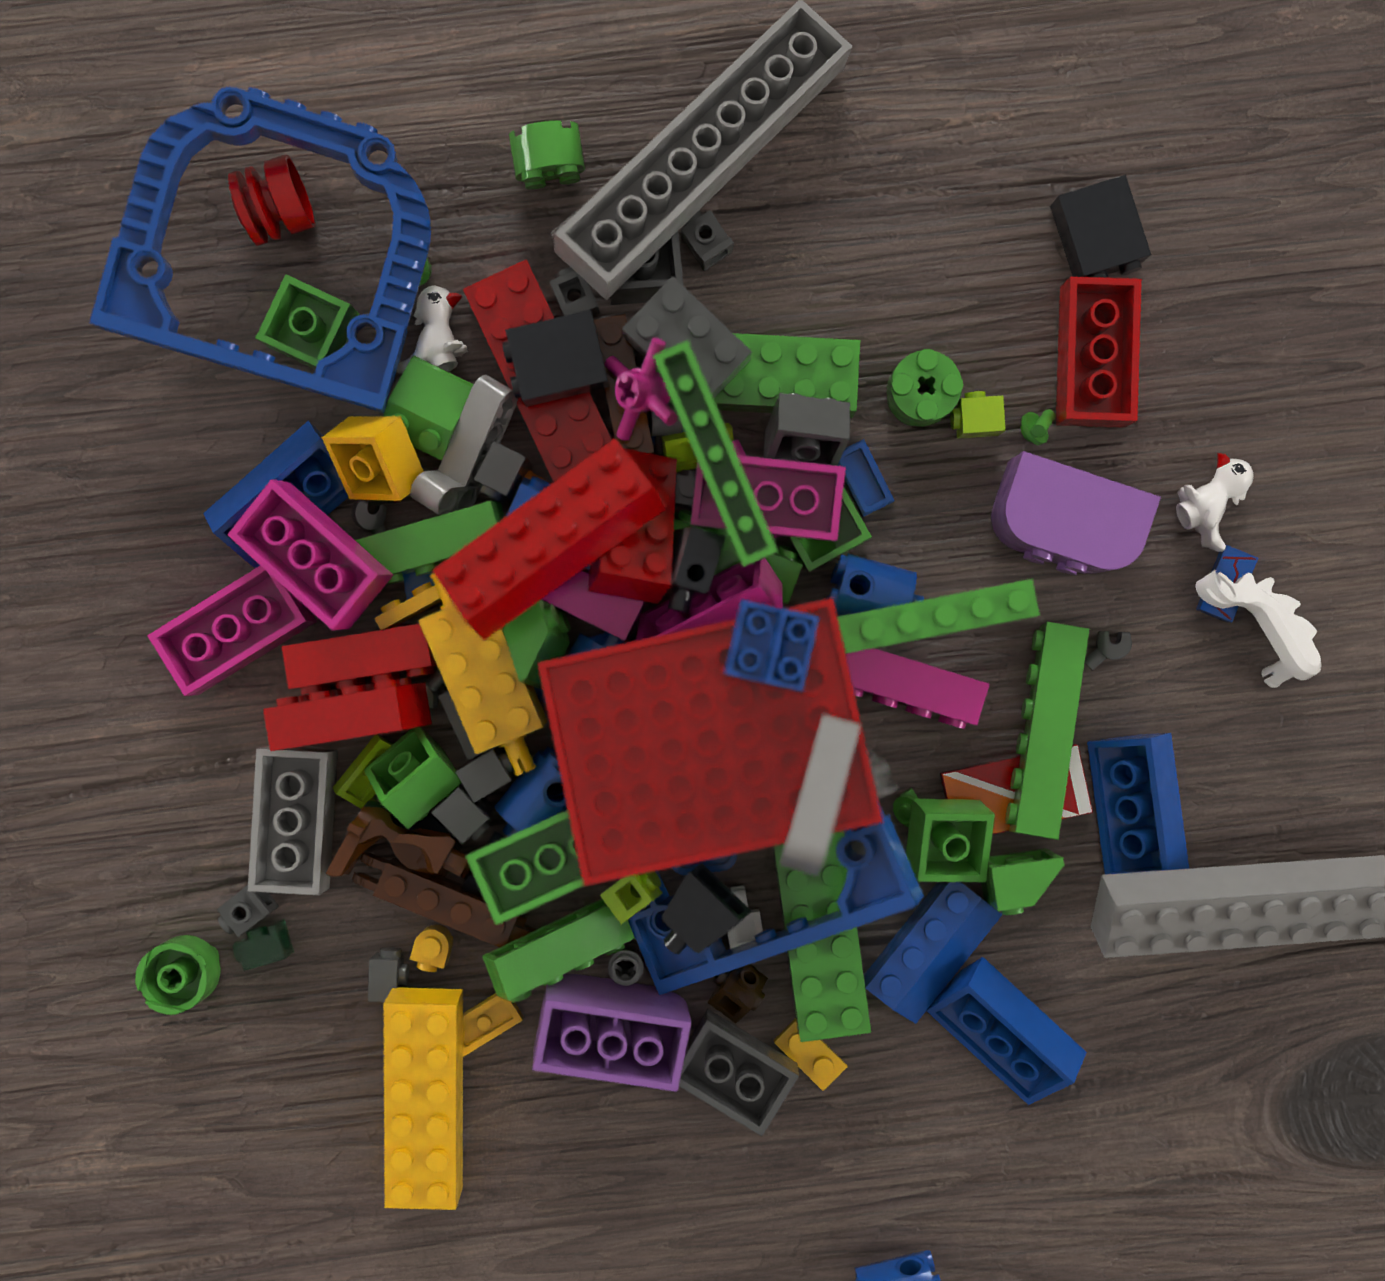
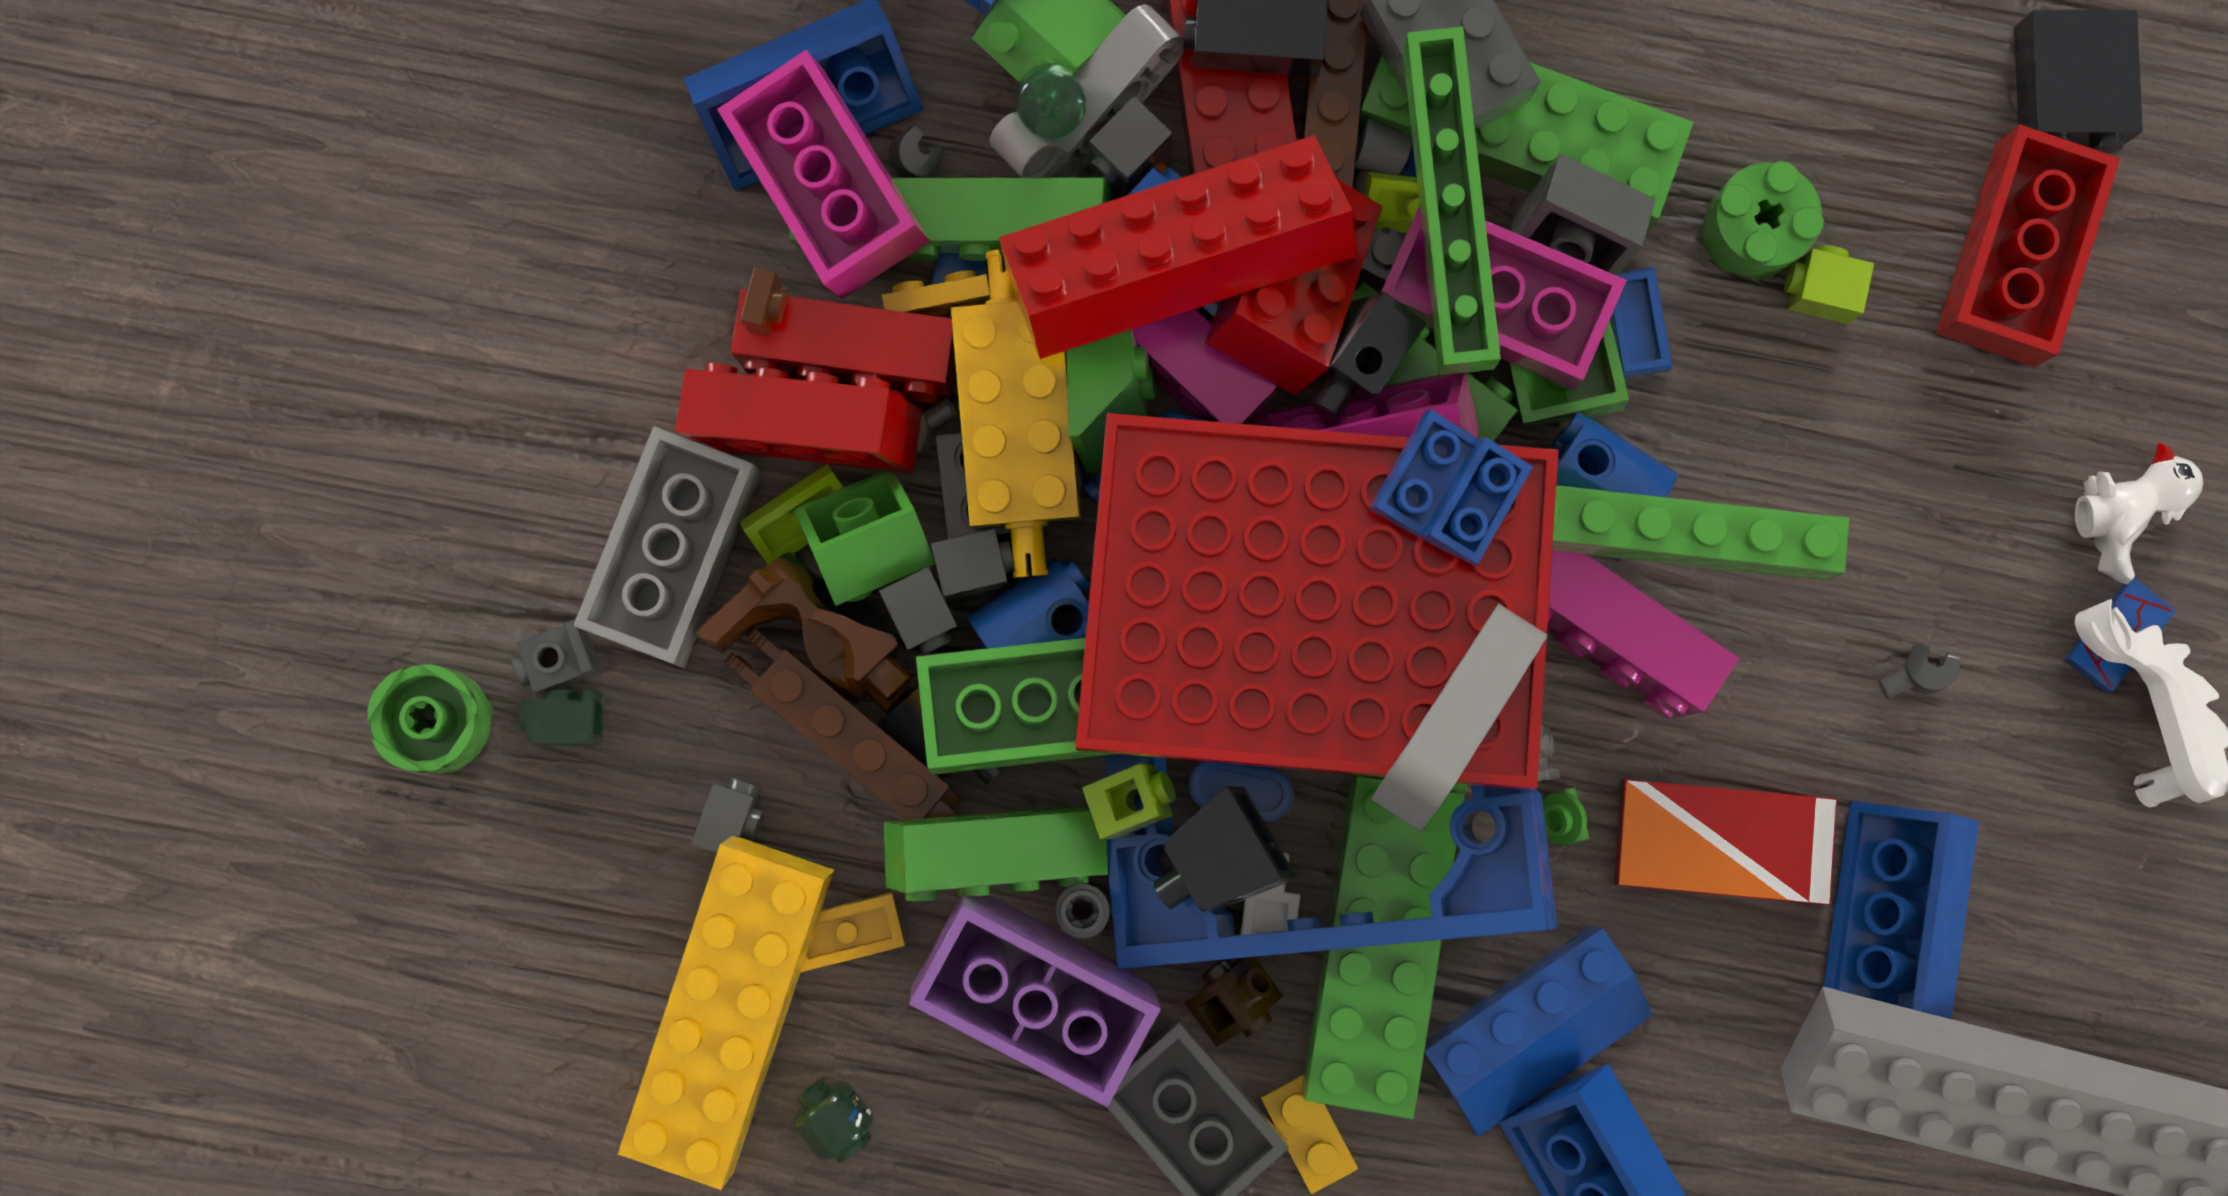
camera: 10 degrees right, 5 degrees down
(229, 631) = (668, 250): dark pink brick -> none
(297, 653) = (763, 302): none -> reddish brown plate
(373, 457) = (954, 71): yellow brick -> none
(432, 948) = (806, 800): yellow plate -> none
(441, 460) = (1046, 83): none -> clear green head
(512, 1141) = (833, 1120): none -> clear green head
(641, 390) = (1367, 88): dark pink bar -> none
(949, 840) = (1614, 871): bright green brick -> none
(1019, 879) = (1692, 964): bright green slope -> none
(1036, 427) = (1905, 327): bright green plate -> none
(1048, 730) = (1800, 762): bright green brick -> none
(1070, 516) = (1922, 462): medium lavender brick -> none

